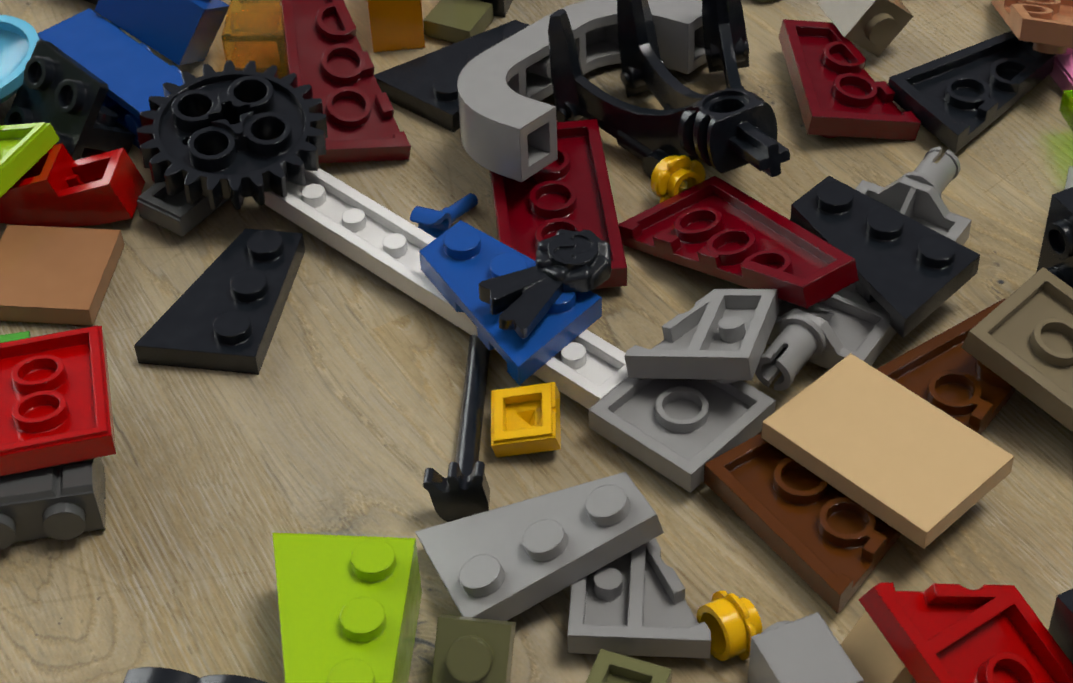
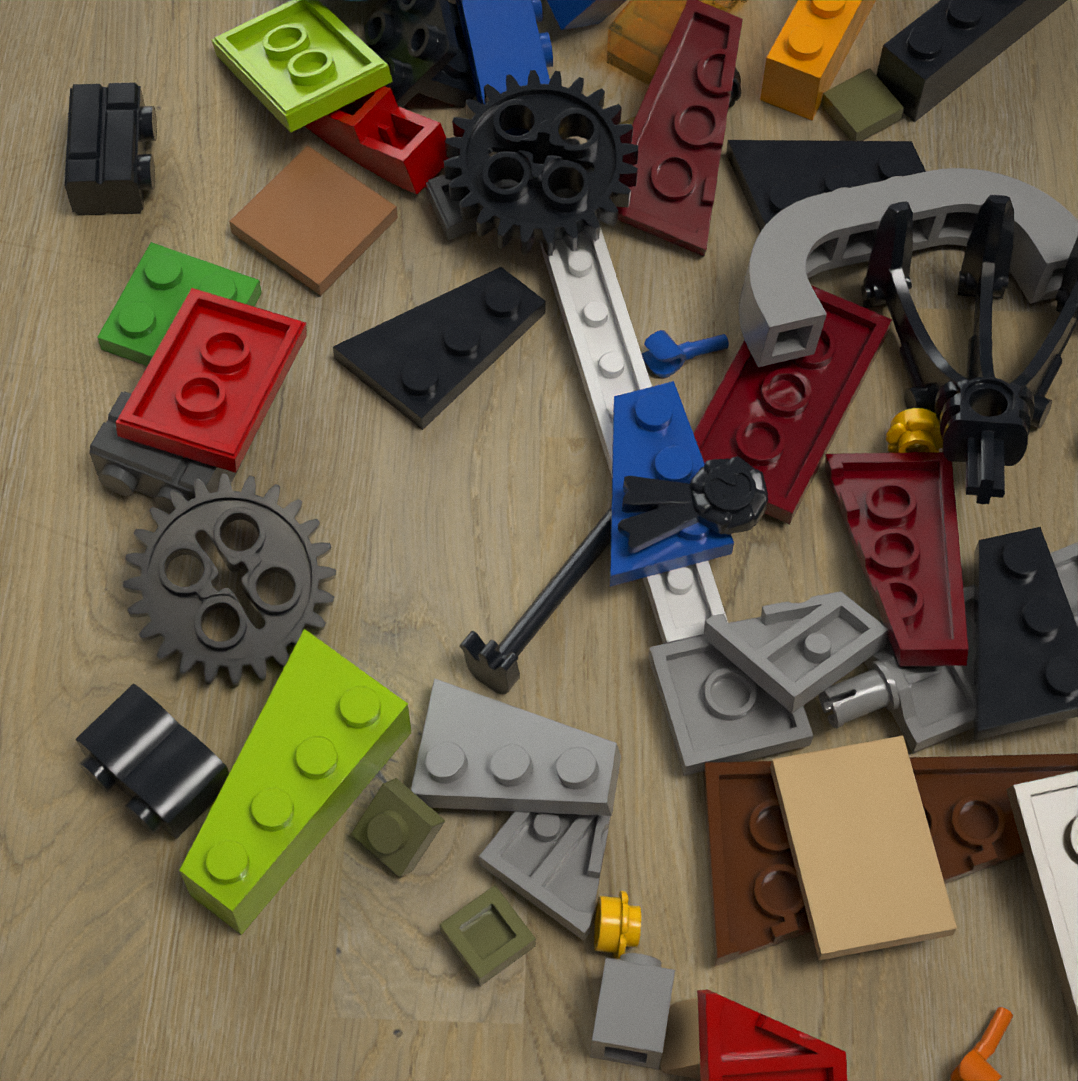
camera: 30 degrees right, 20 degrees up
(132, 593) = (179, 611): none -> black gear
(525, 419) = (597, 620): yellow tile -> none

